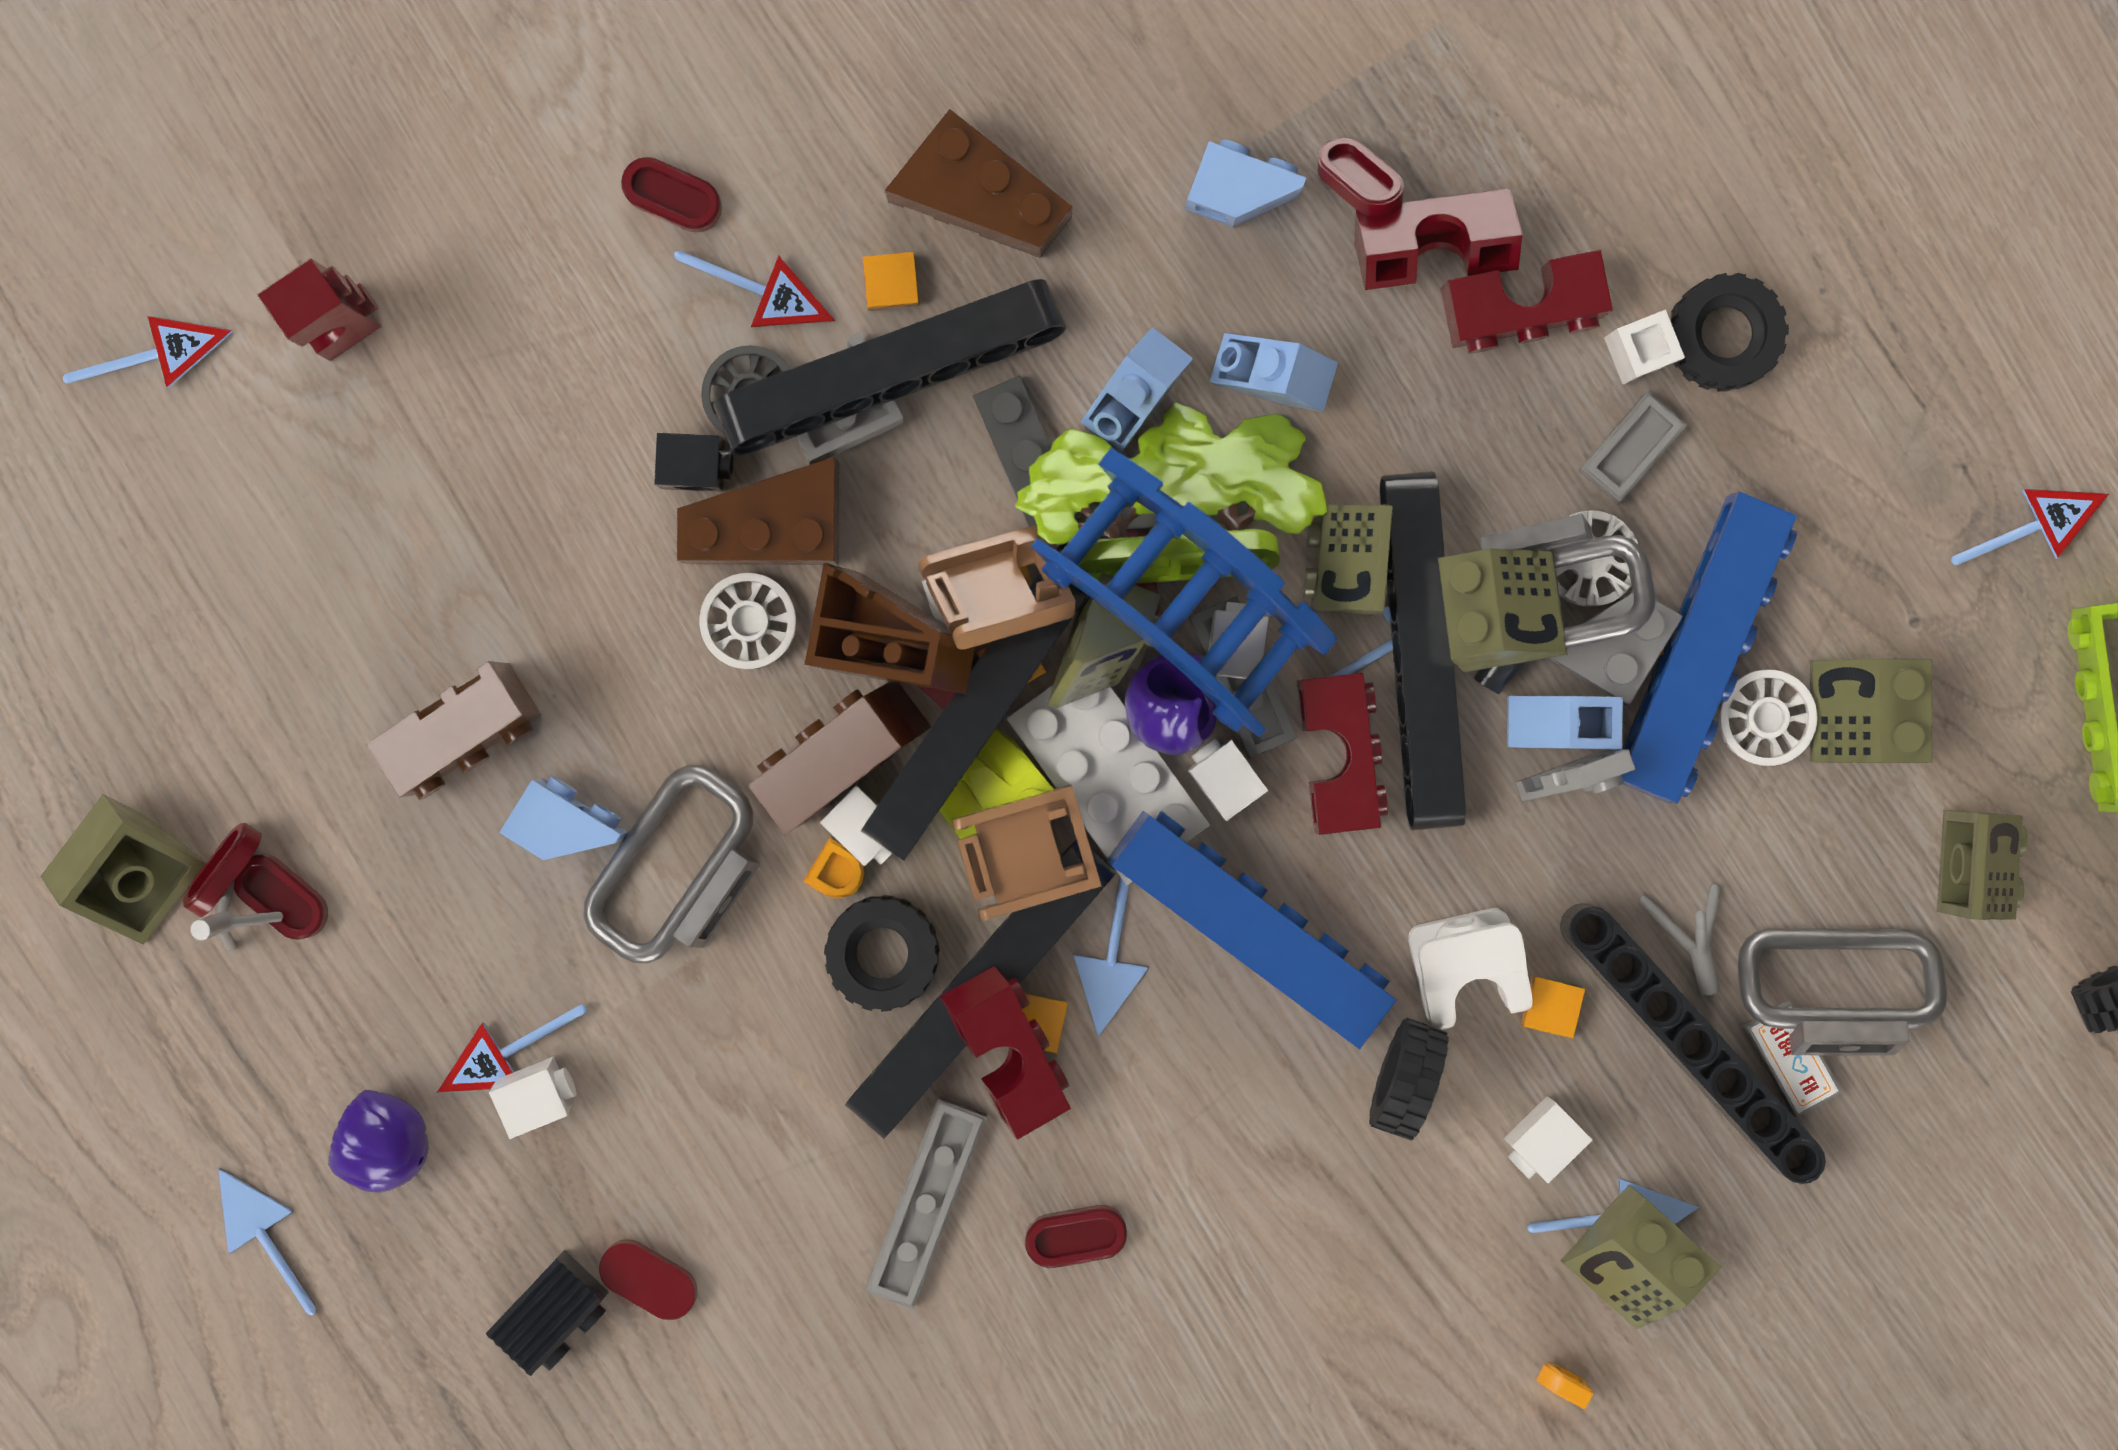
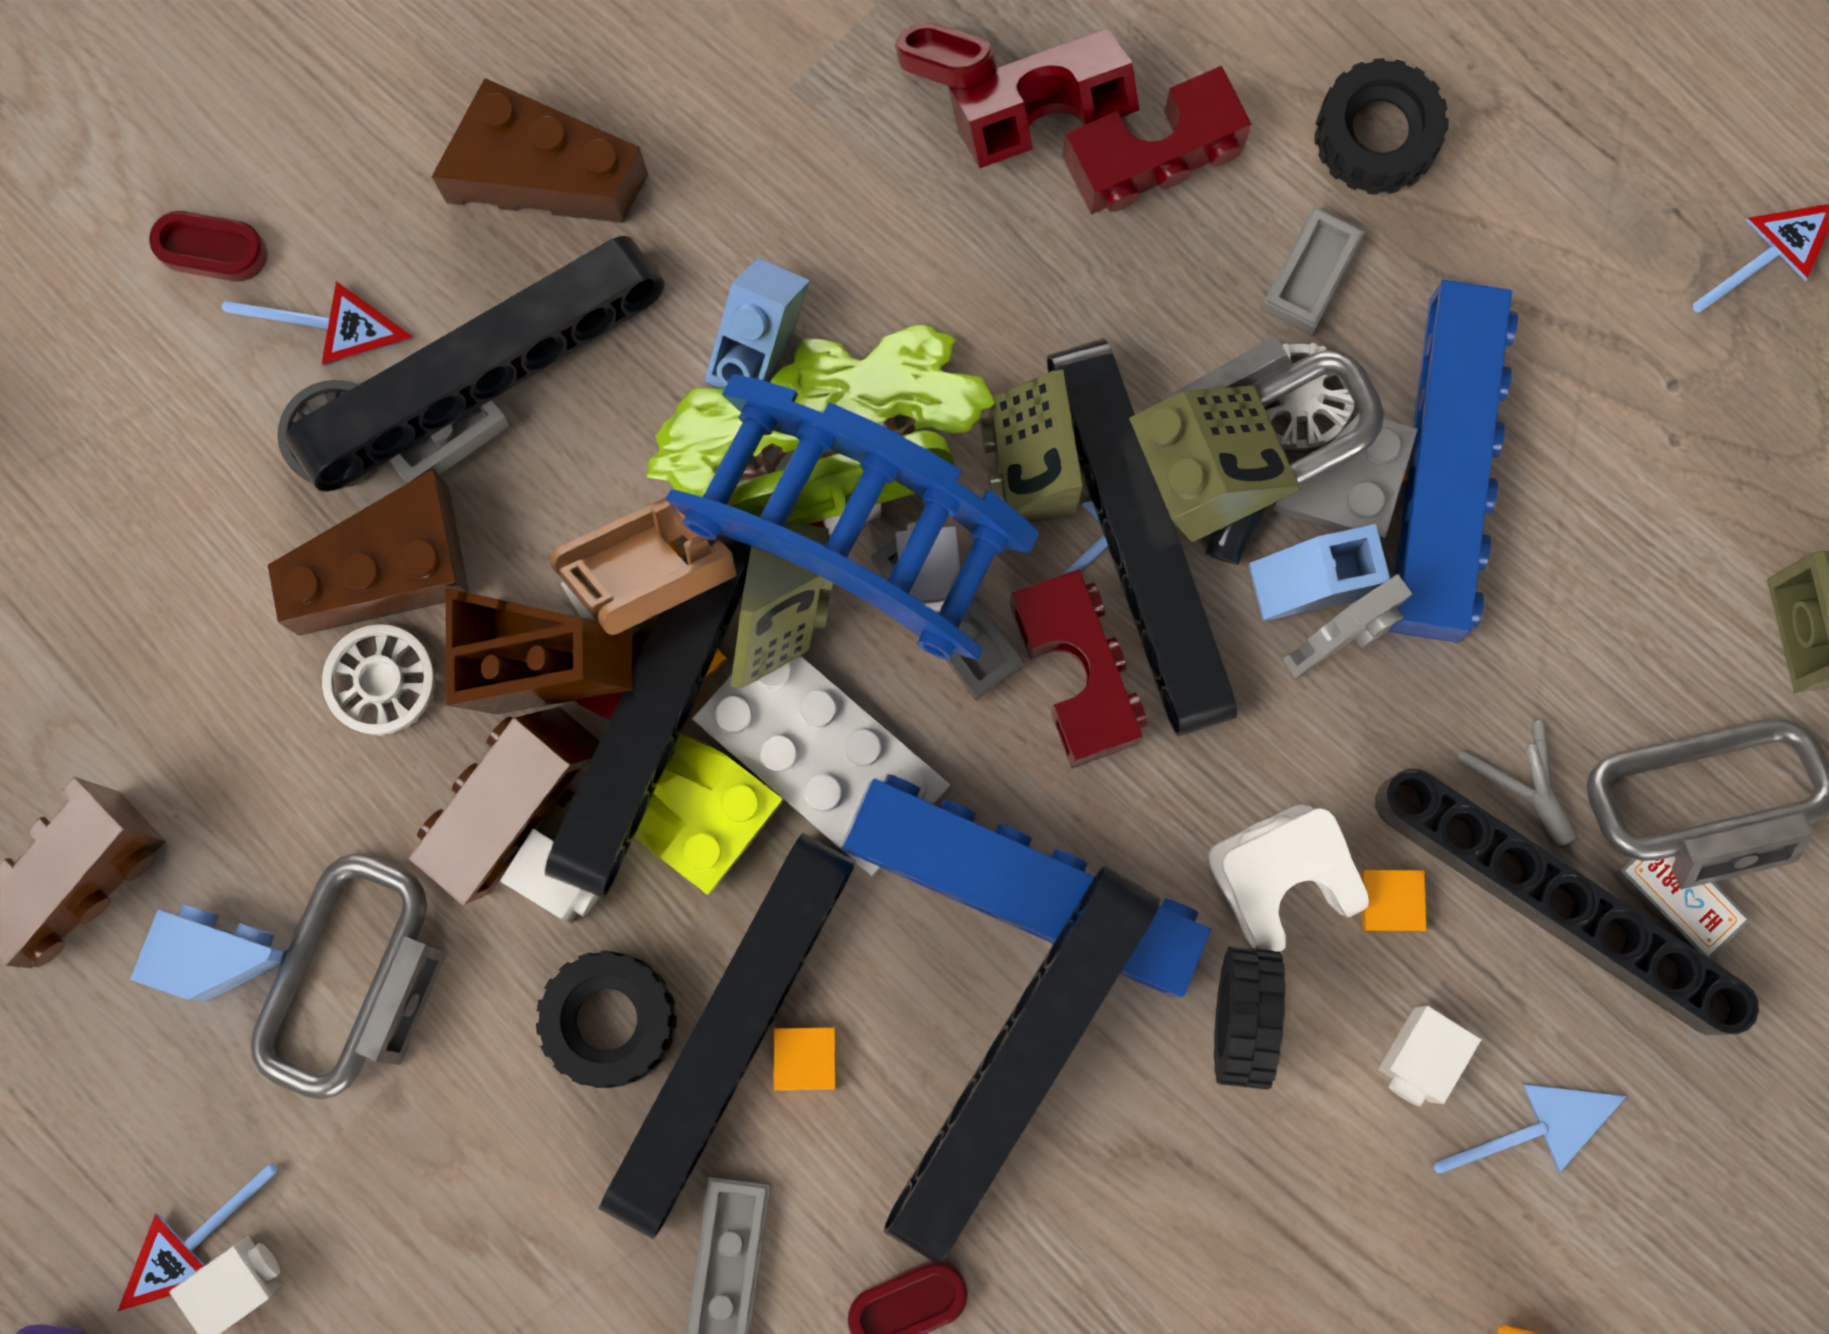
camera: 10 degrees left, 10 degrees down
(692, 462) = (278, 517): black brick -> none
(836, 871) = (536, 938): light orange tile -> none
(890, 281) = (464, 280): light orange tile -> none
(992, 1016) = (808, 1134): dark red arch -> none
(1014, 431) = (630, 404): dark grey plate -> none
(1018, 854) = (734, 862): medium nougat container -> none
(1108, 981) = (876, 993): light blue piece -> none
(1168, 708) = (870, 659): dark purple piece -> none
(1216, 1072) = (1021, 1064): none -> black beam
(1226, 777) = (954, 726): white brick -> none
(1240, 187) = (820, 96): light blue slope -> none
(1274, 371) = (903, 275): light blue slope -> none
(1640, 1261) = (1577, 1173): olive slope -> none
(1644, 346) = (1294, 156): white panel -> none
(1768, 718) = (1543, 522): white wheel -> none
(1872, 710) = (1656, 484): olive slope -> none

